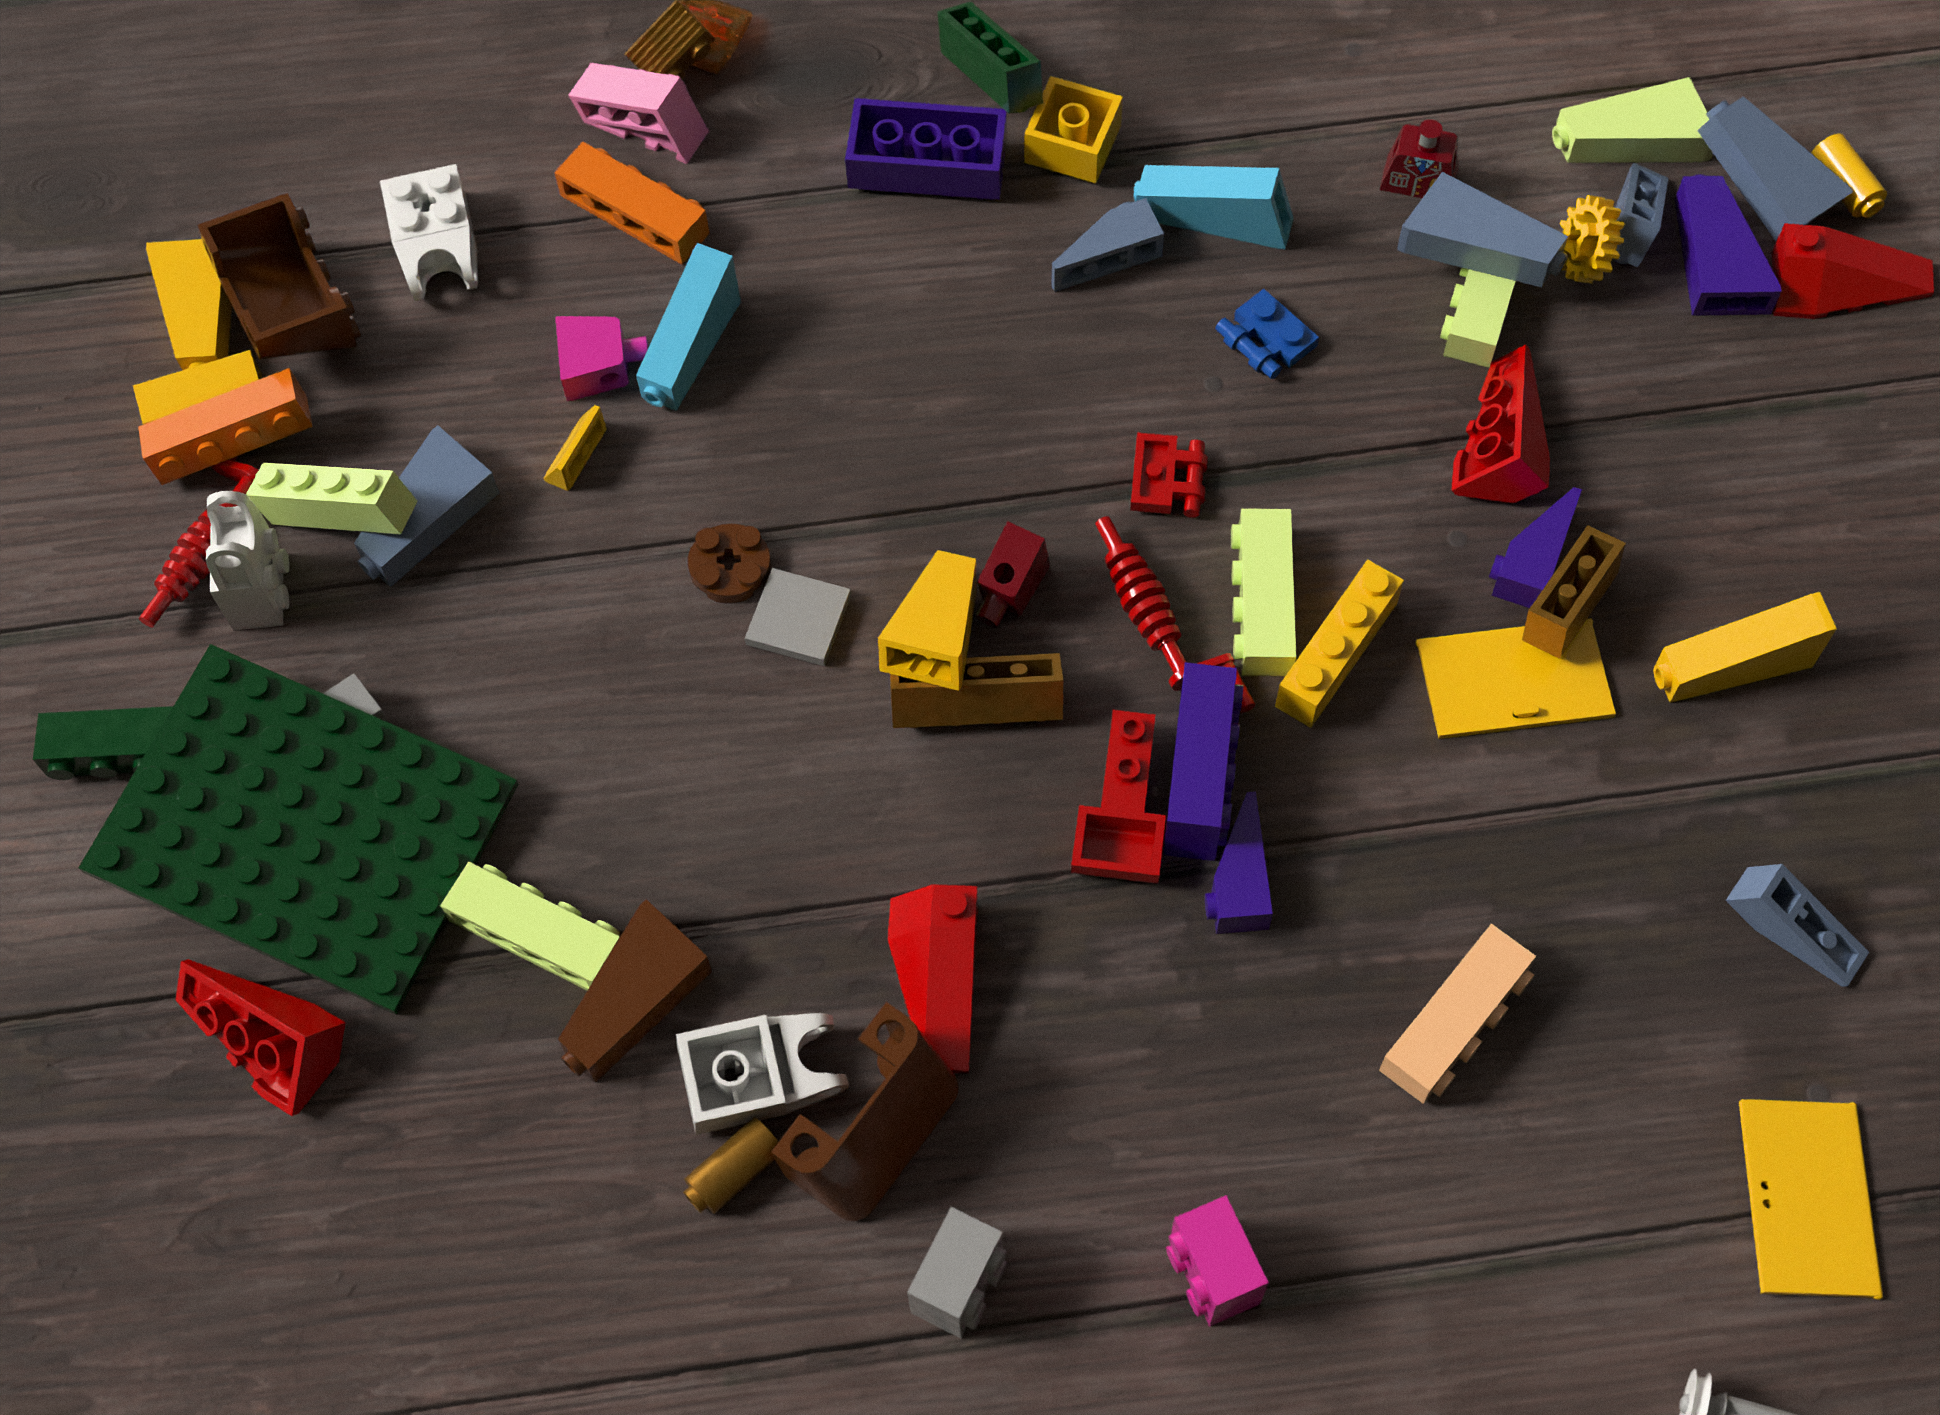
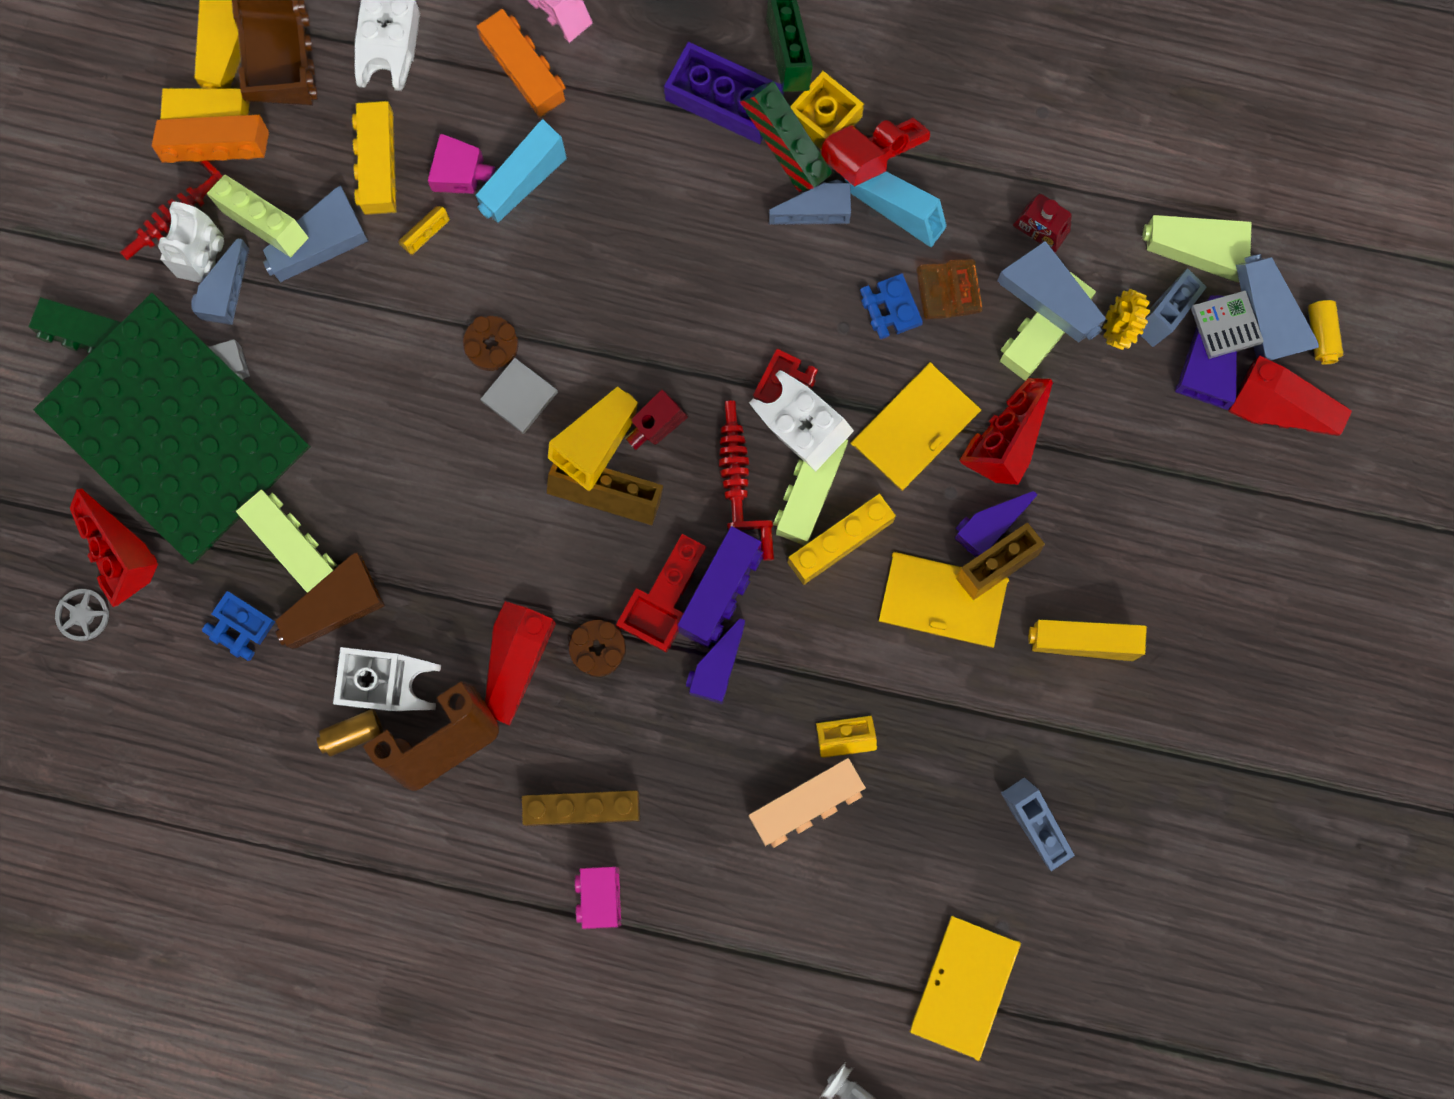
camera: 20 degrees right, 15 degrees up
(246, 1148) = (81, 614): none -> light grey wheel
(306, 618) = (220, 289): none -> sand blue slope
(473, 379) = (375, 158): none -> yellow brick
(500, 1060) = (241, 617): none -> blue plate
(957, 1272) = (450, 848): light grey brick -> none
(1037, 165) = (786, 137): none -> dark green brick
(1048, 938) = (610, 657): none -> reddish brown plate
(1129, 1145) = (580, 808): none -> pearl gold brick
(1154, 156) = (865, 158): none -> red plate
(1219, 501) = (804, 421): none -> white brick
(1335, 288) = (949, 289): none -> clear orange slope
(1363, 469) = (916, 420): none -> yellow container
(1469, 908) = (846, 736): none -> yellow slope
(1723, 201) = (1227, 324): none -> light grey tile

